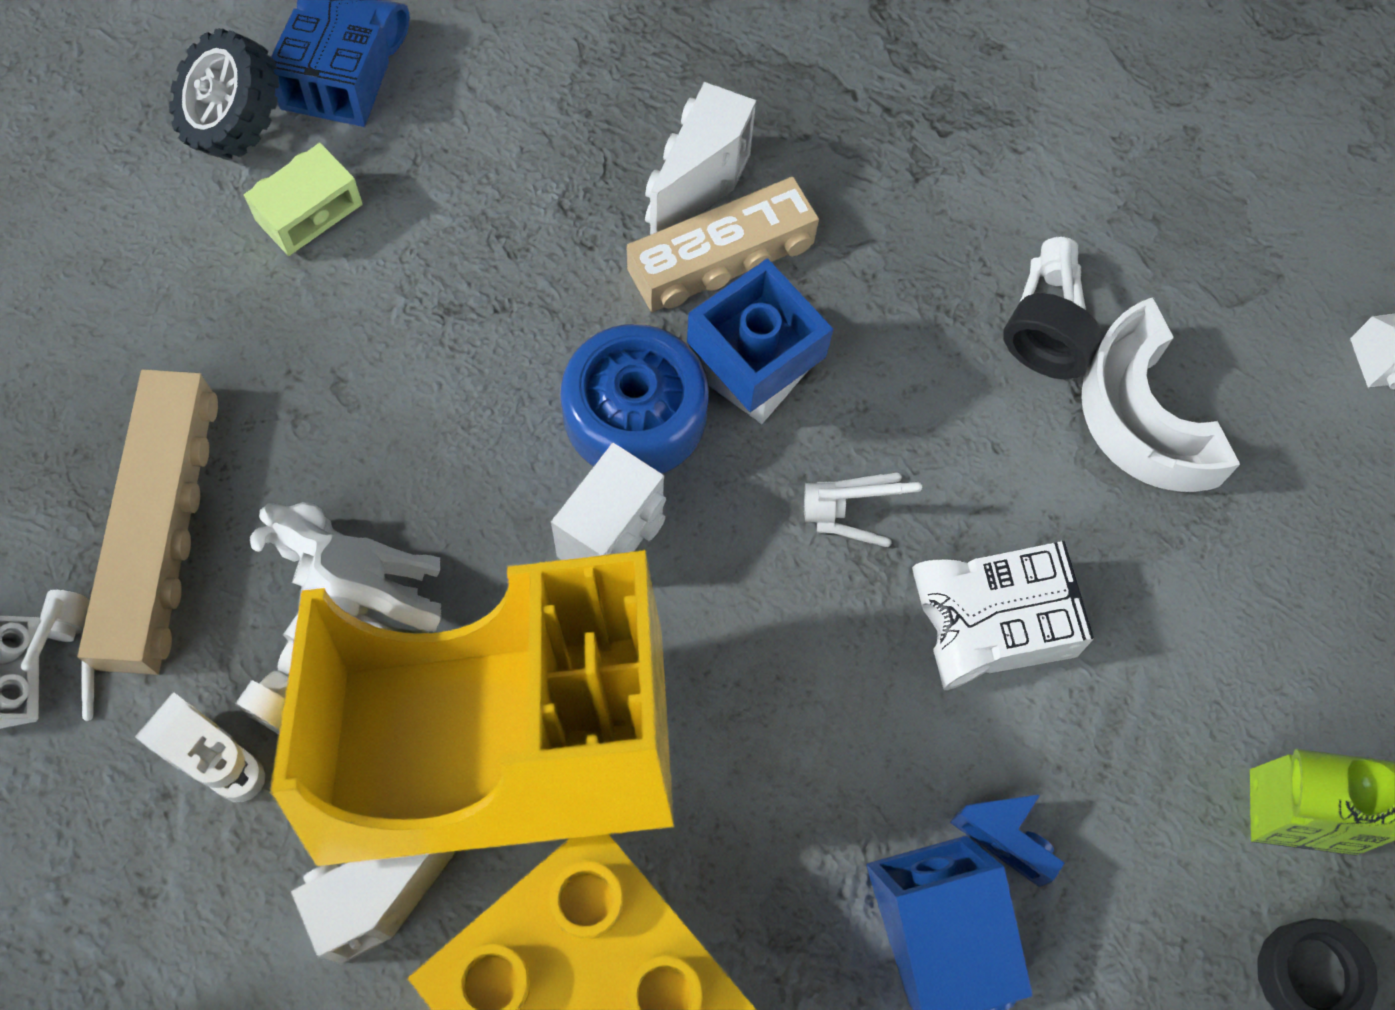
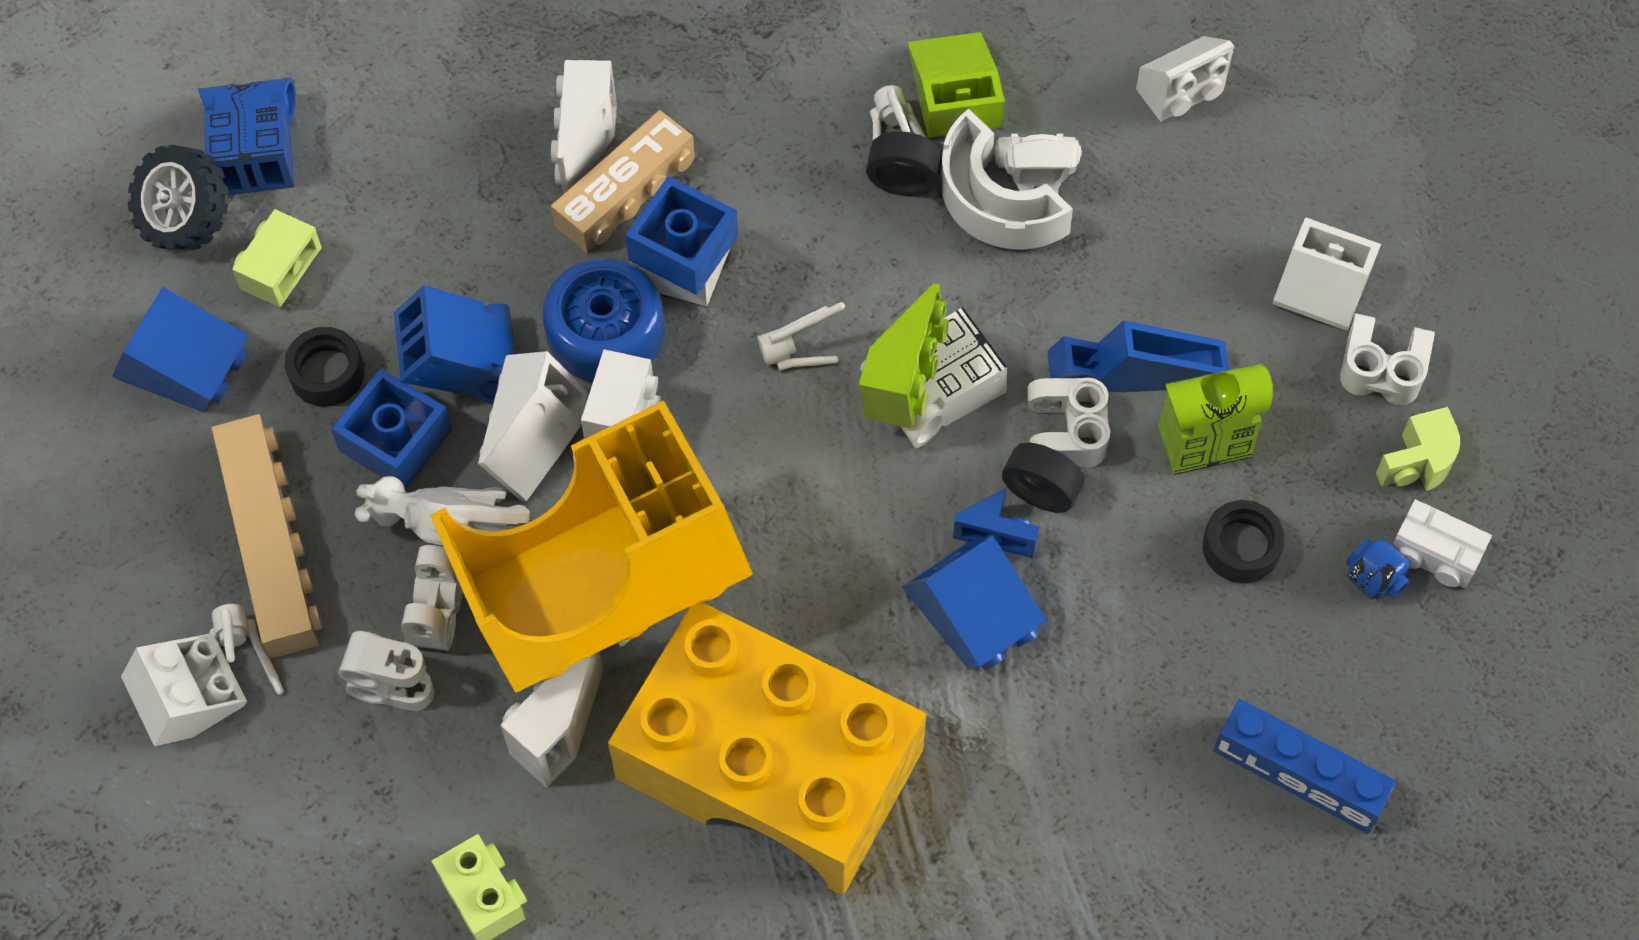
camera: 15 degrees left, 5 degrees down
(152, 268) = (182, 353): none -> blue slope
(294, 311) = (320, 340): none -> black tyre
(342, 444) = (392, 428): none -> blue brick
(453, 373) = (453, 342): none -> blue piece
(497, 495) = (530, 421): none -> white slope
(959, 594) = (903, 361): none -> lime slope
(1091, 796) = (1043, 477): none -> black tyre
(1142, 255) = (955, 77): none -> lime slope
(1158, 734) = (1064, 396): none -> white piece
(1212, 385) = (1037, 159): none -> white piece
(1256, 681) = (1138, 358): none -> blue slope

